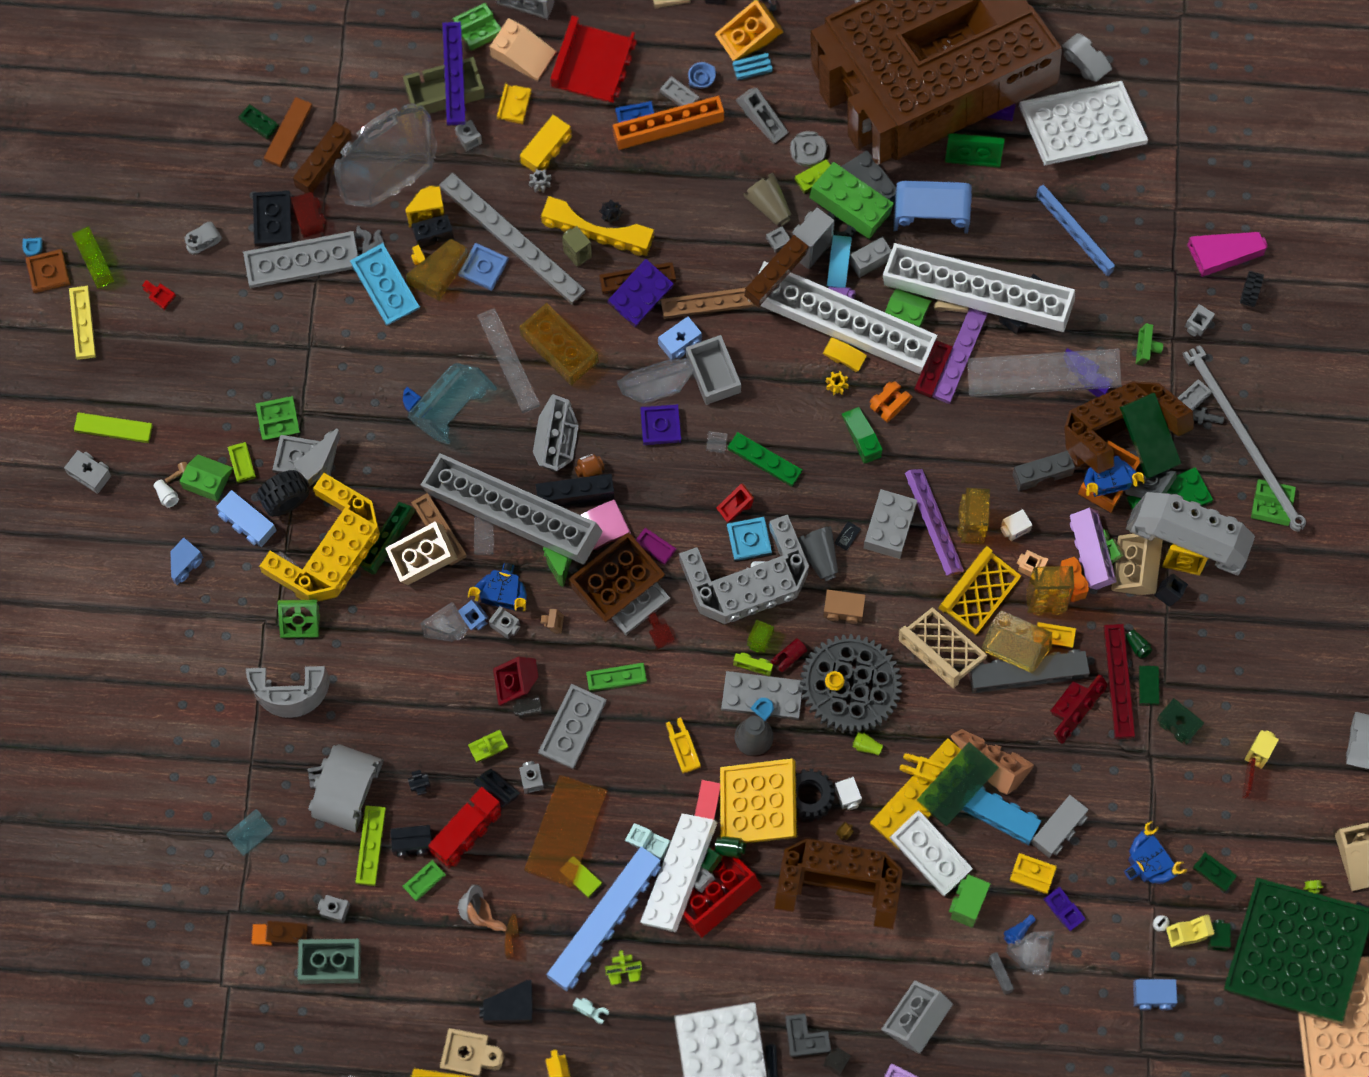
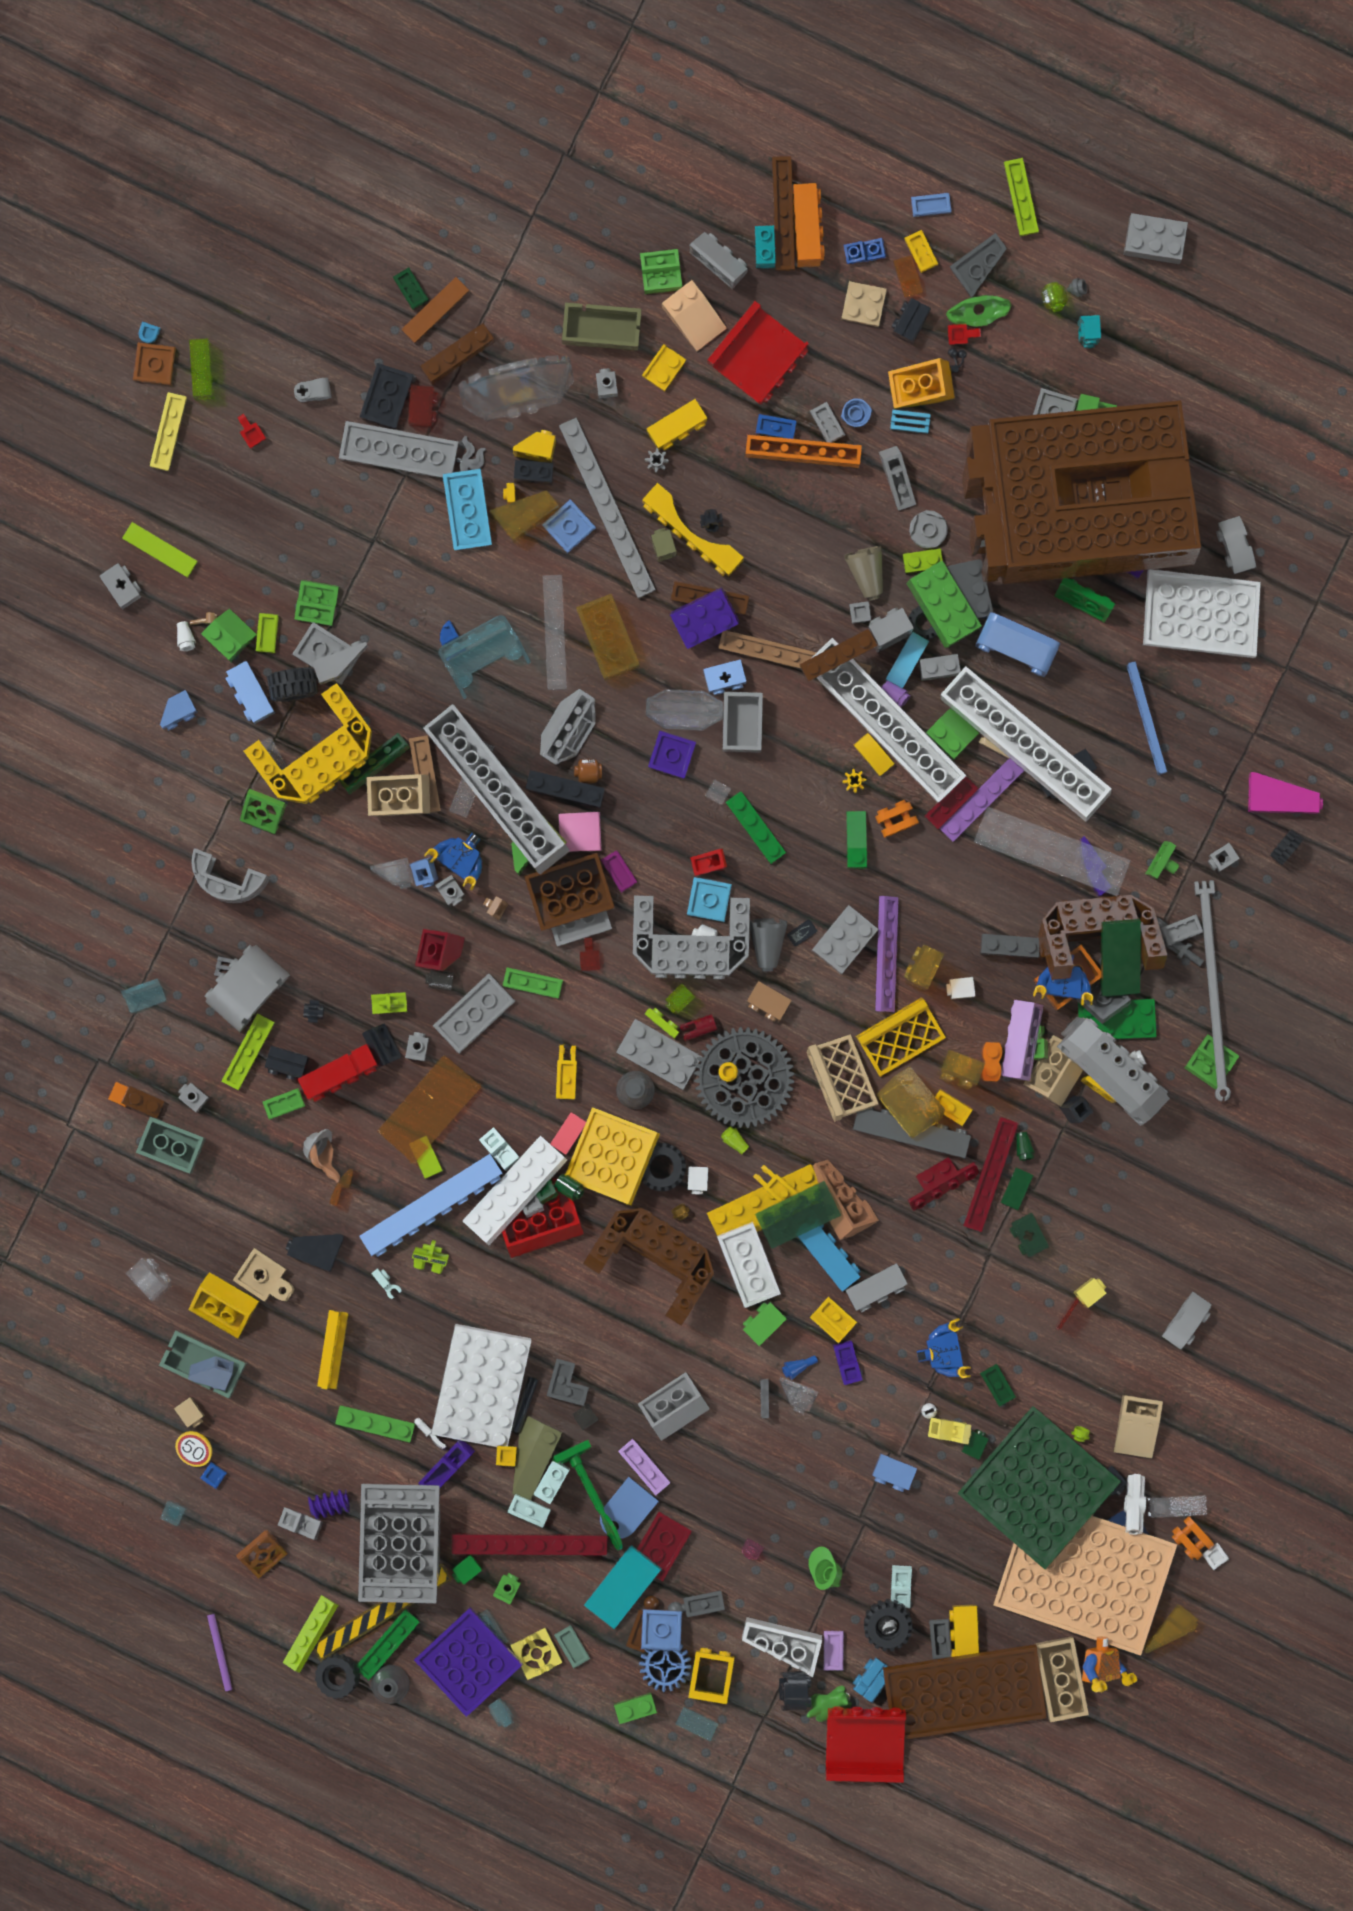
camera: 20 degrees right, 15 degrees up
(454, 73) = (614, 321): dark purple plate -> none
(763, 707) = (653, 1069): dark azure tile -> none
(1027, 569) = (963, 1039): light nougat window -> none

